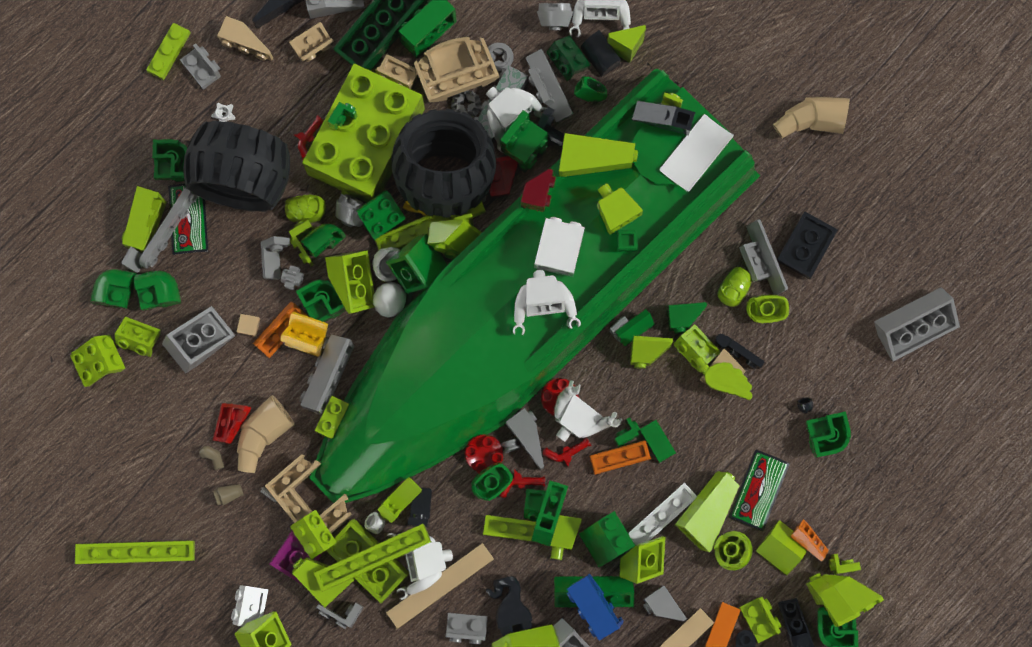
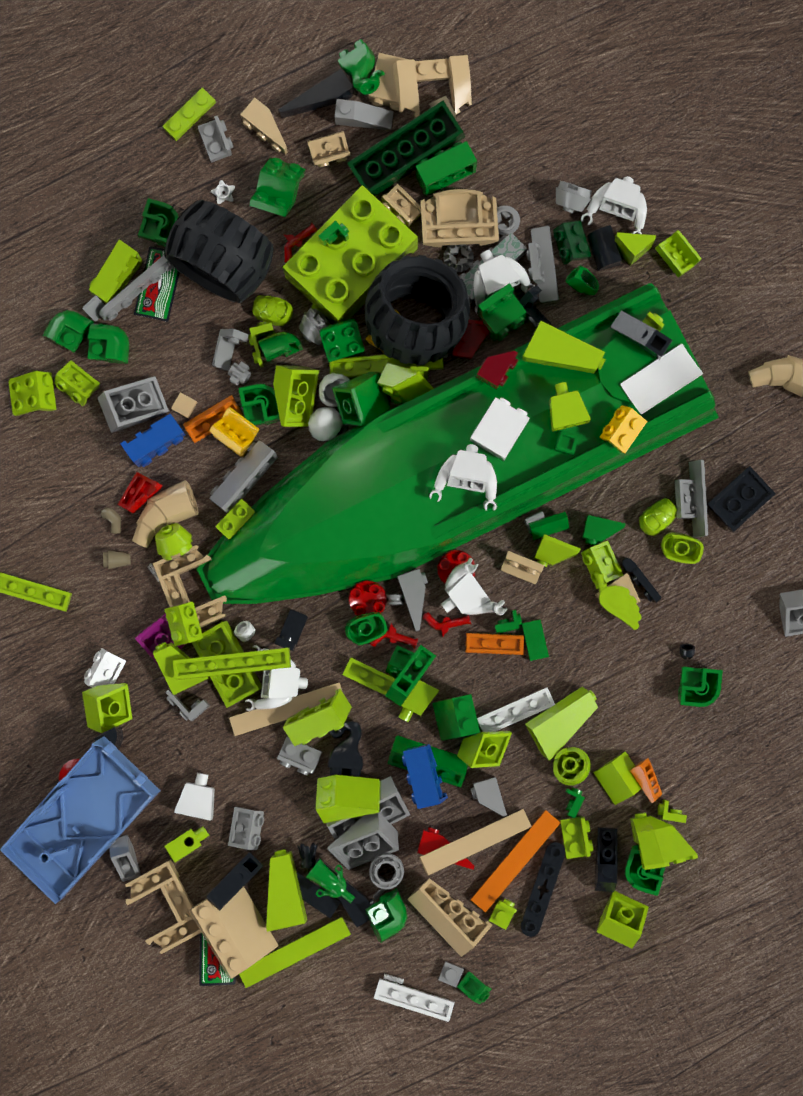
camera: 20 degrees right, 5 degrees up
(230, 367) = (154, 441): none -> blue wedge
(273, 91) = (277, 186): none -> green bracket
(277, 457) = (173, 540): none -> lime cone
(399, 500) = (274, 617): lime bracket -> none
(474, 585) = (318, 720): none -> lime wedge
(622, 375) = (522, 567): none -> tan bracket
(671, 37) = (678, 253): none -> lime bracket
(676, 209) = (623, 428): none -> yellow bracket
(749, 588) = (574, 805): none -> green bracket
(759, 490) = (616, 717): sticker -> none

